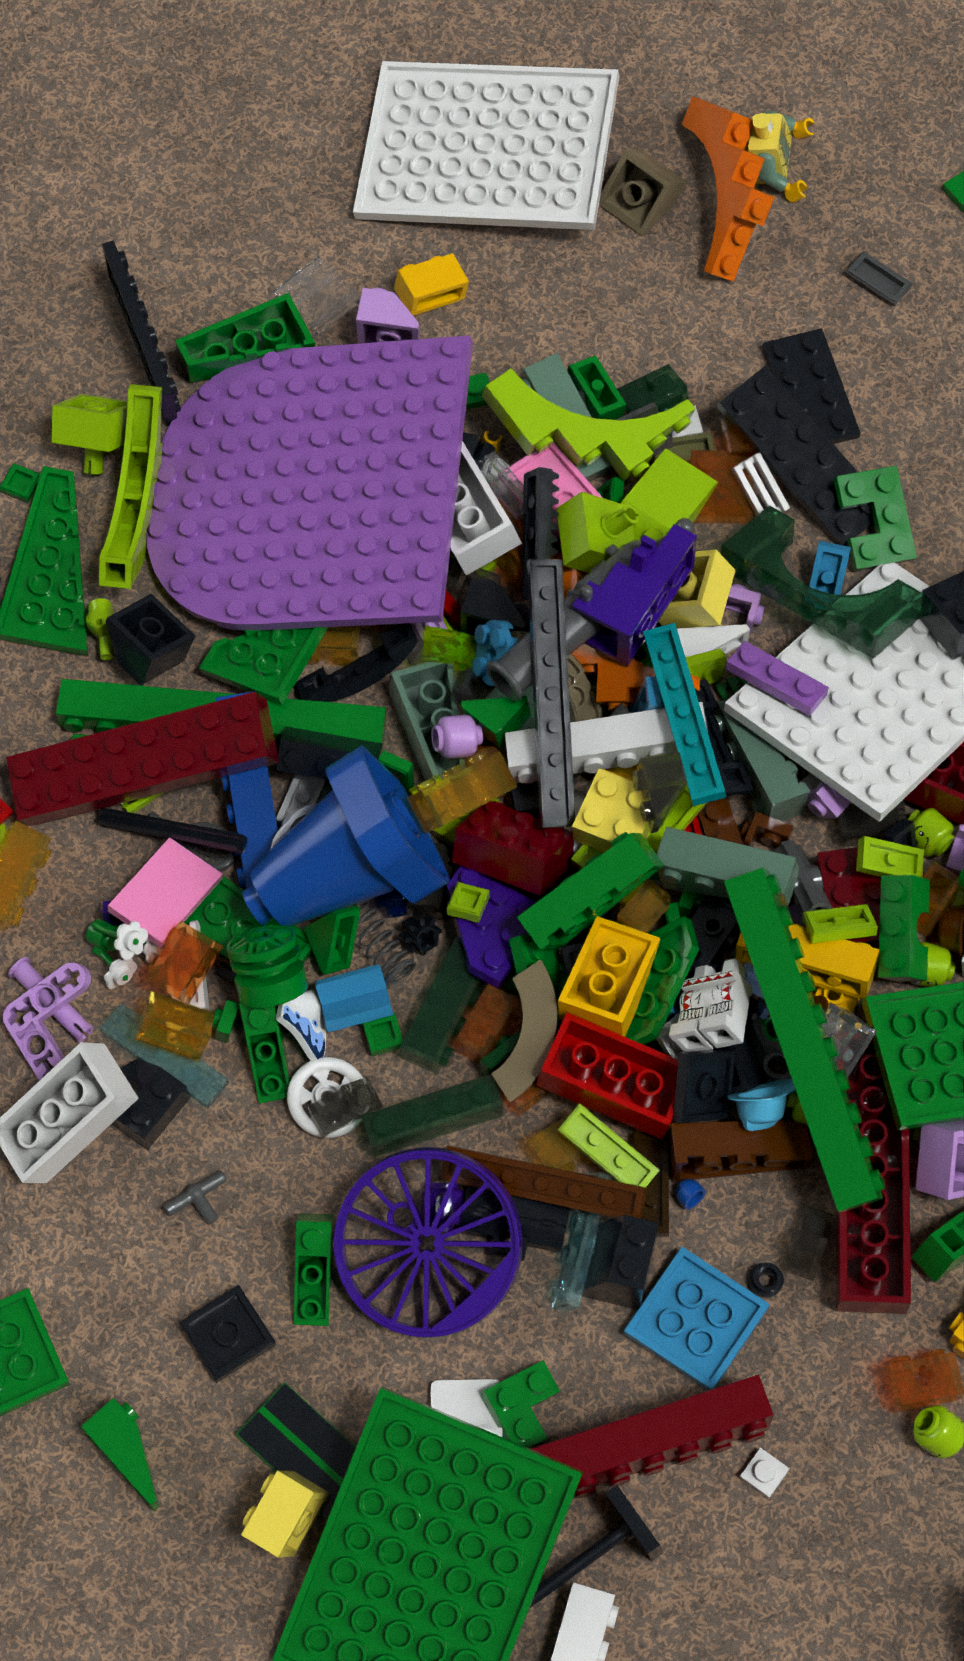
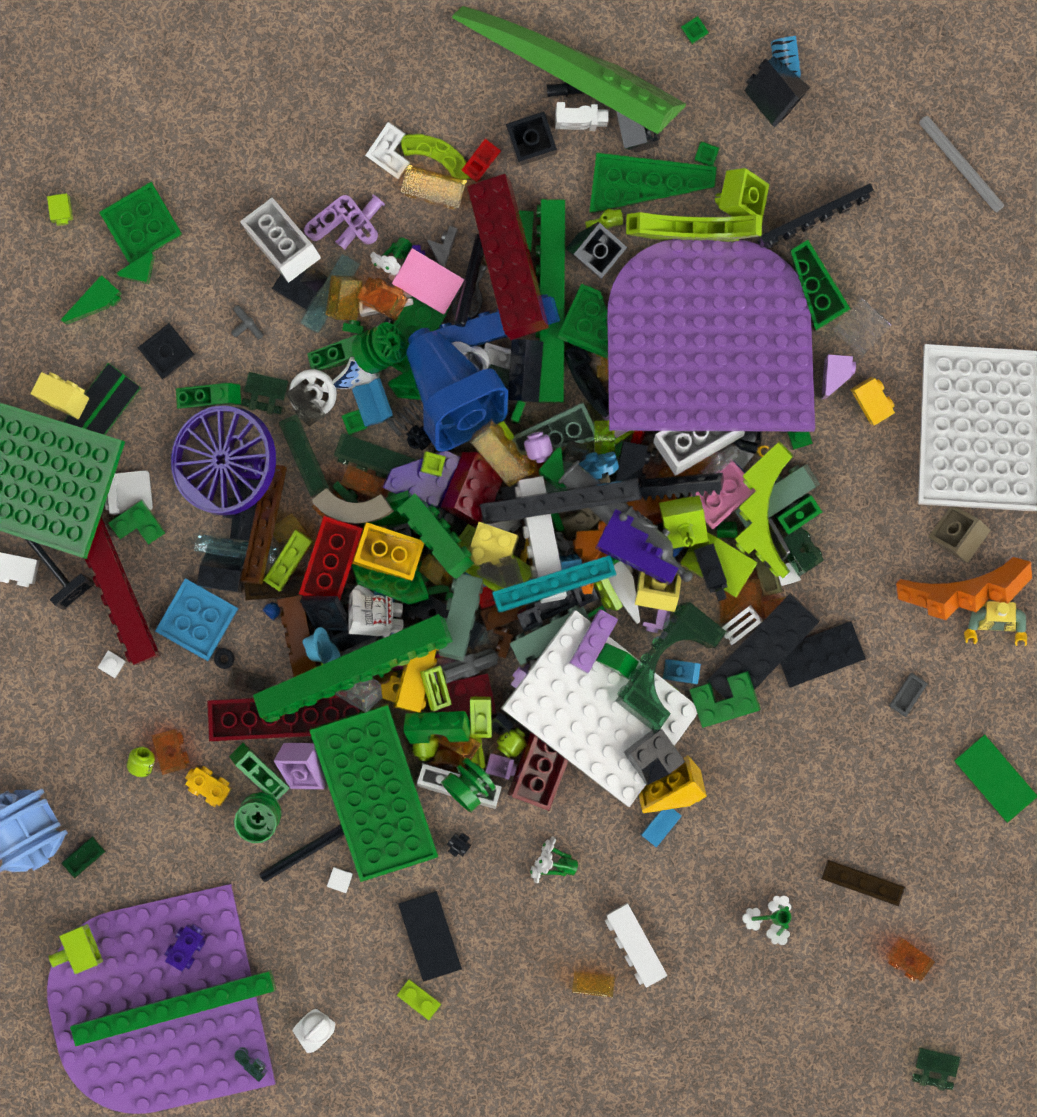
camera: 85 degrees right, 20 degrees up
(83, 1365) = (139, 270): none -> green slope
(88, 148) = (961, 163): none -> light grey axle
(115, 869) = (441, 251): none -> flat silver slope
(308, 1172) = (267, 387): none -> clear green plate
(669, 506) = (711, 570): none -> black hinge
(809, 648) = (617, 660): none -> green slope

